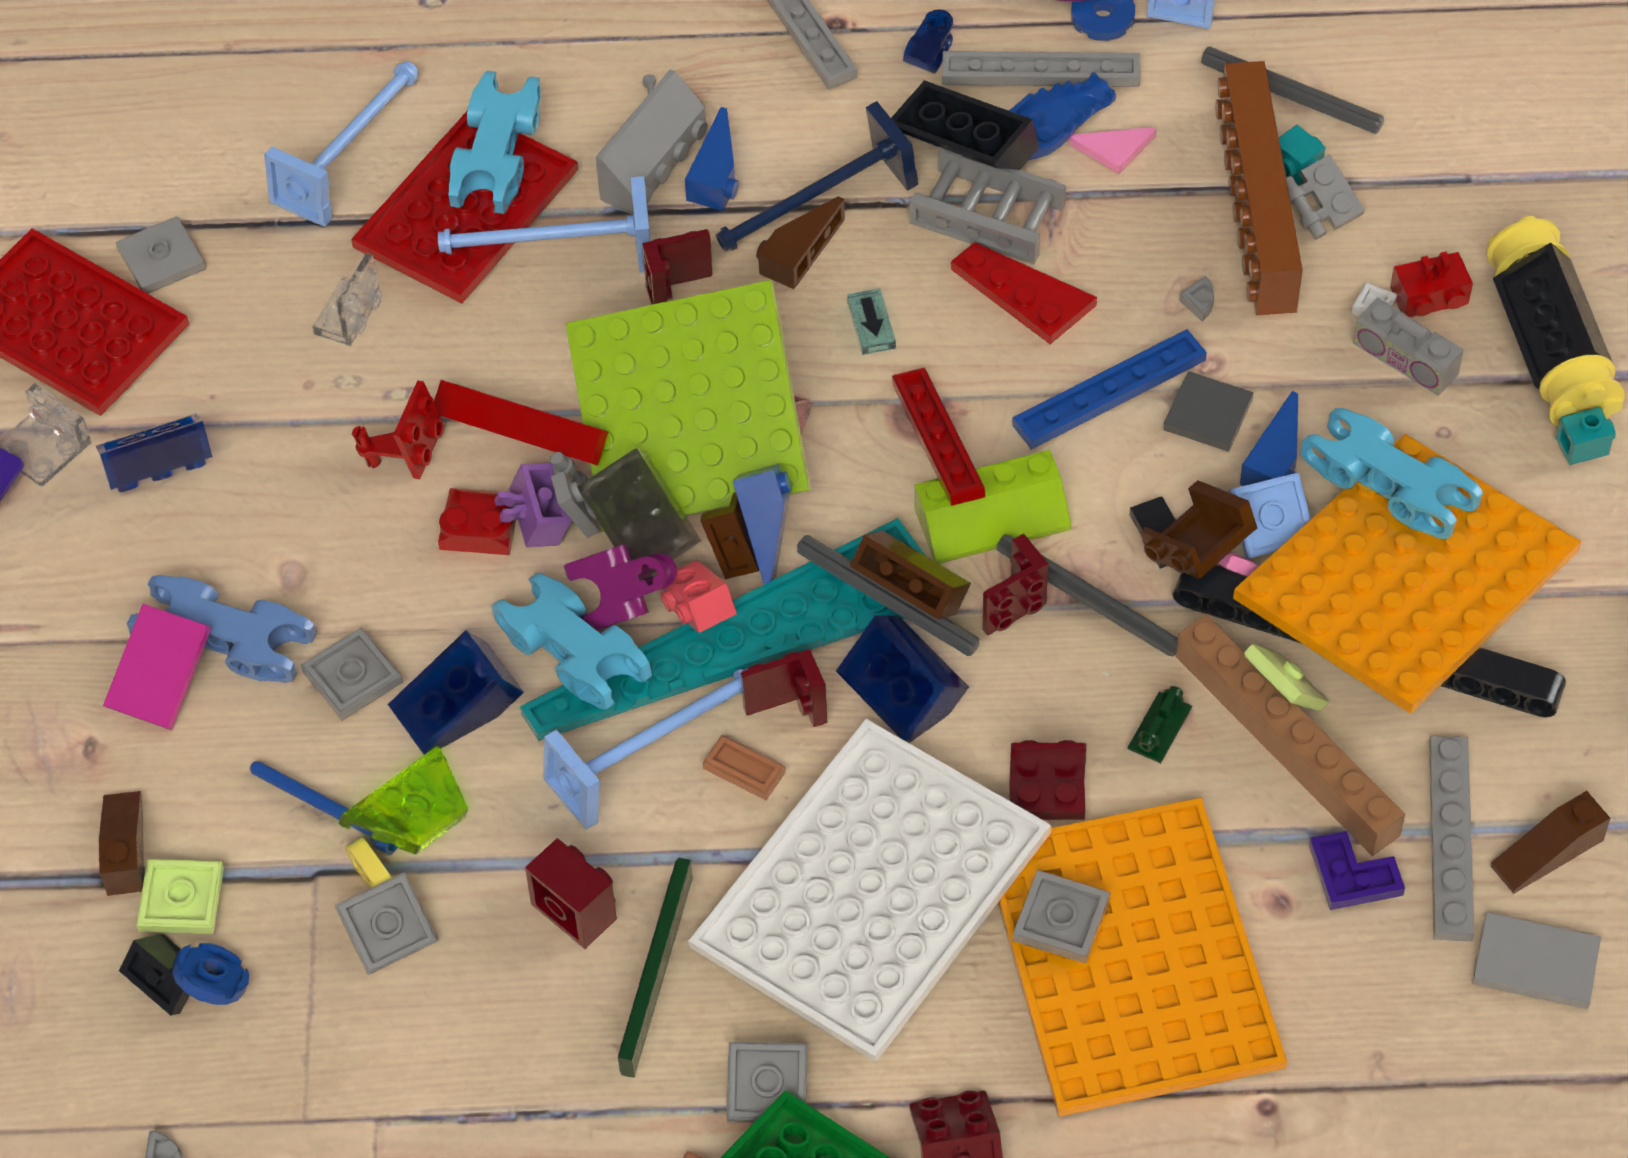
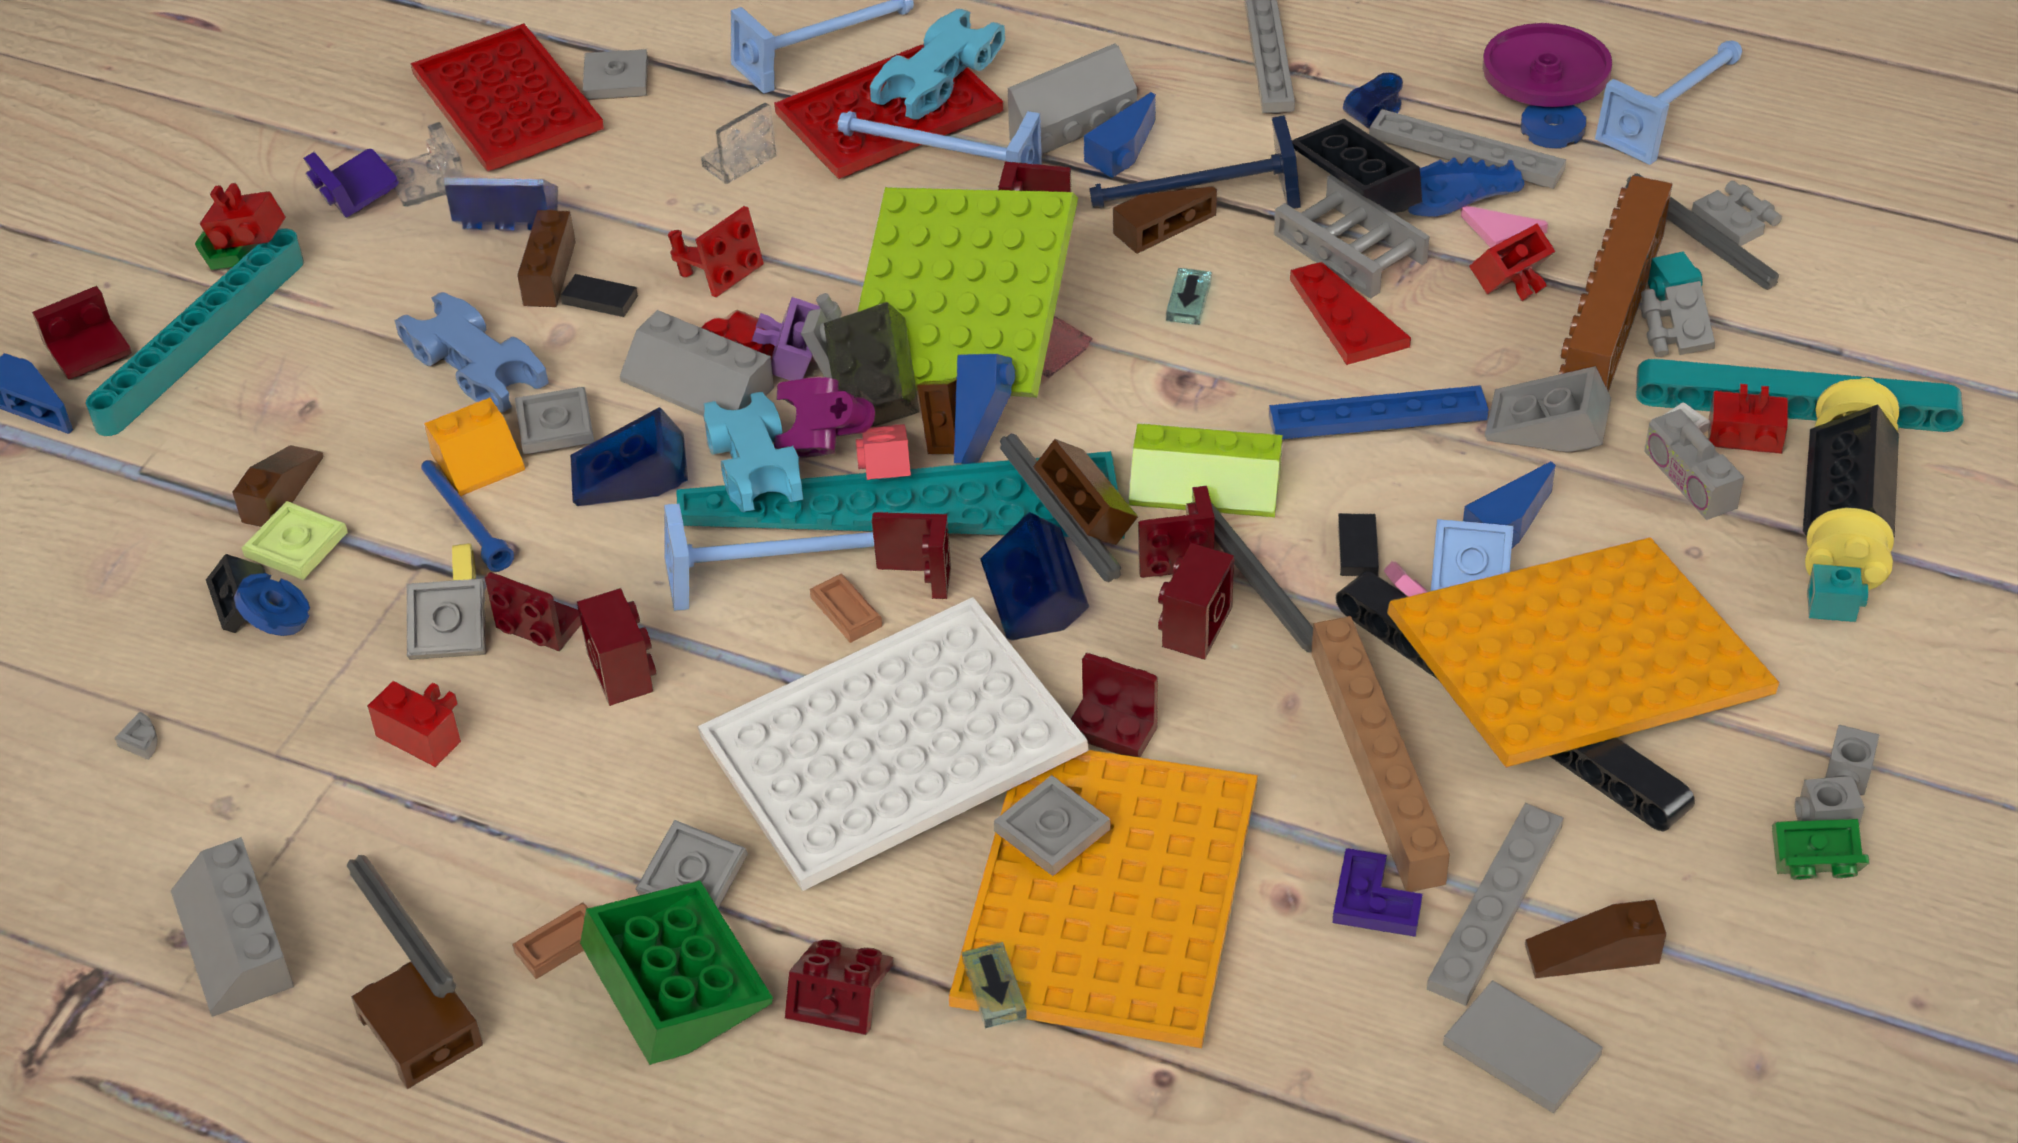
camera: 25 degrees right, 10 degrees down
(157, 666) = (395, 359): dark pink tile -> none
(233, 498) = (546, 258): none -> reddish brown brick
(294, 732) = (474, 446): none -> light orange slope
(306, 518) = (599, 295): none -> black tile
(412, 805) = (529, 534): clear neon green wing -> none
(426, 1038) = (416, 721): none -> red brick
(456, 568) = (694, 365): none -> light grey slope
(465, 888) = (530, 612): none -> dark red bracket
(520, 422) = (817, 269): red tile -> none
(655, 967) = (654, 739): dark green tile -> none
(938, 437) = (1184, 395): red tile -> none
(1062, 647) = (1196, 600): none -> dark red brick
(1094, 1084) = (994, 985): none -> clear light blue tile
(1151, 186) = (1514, 261): none -> red brick
(1160, 725) = (1258, 703): dark green hinge -> none
(1199, 298) = (1511, 368): light grey tile -> none
(1203, 532) = (1389, 552): reddish brown panel -> none
(1208, 411) = (1465, 461): dark grey tile -> none
(1260, 335) = (1552, 412): none -> light grey slope
(1286, 677) = (1401, 698): yellowish green plate -> none
(1311, 67) = (1730, 218): none -> light grey plate
(1373, 259) = (1672, 382): none -> teal beam
(1413, 487) = (1617, 570): medium azure piece -> none

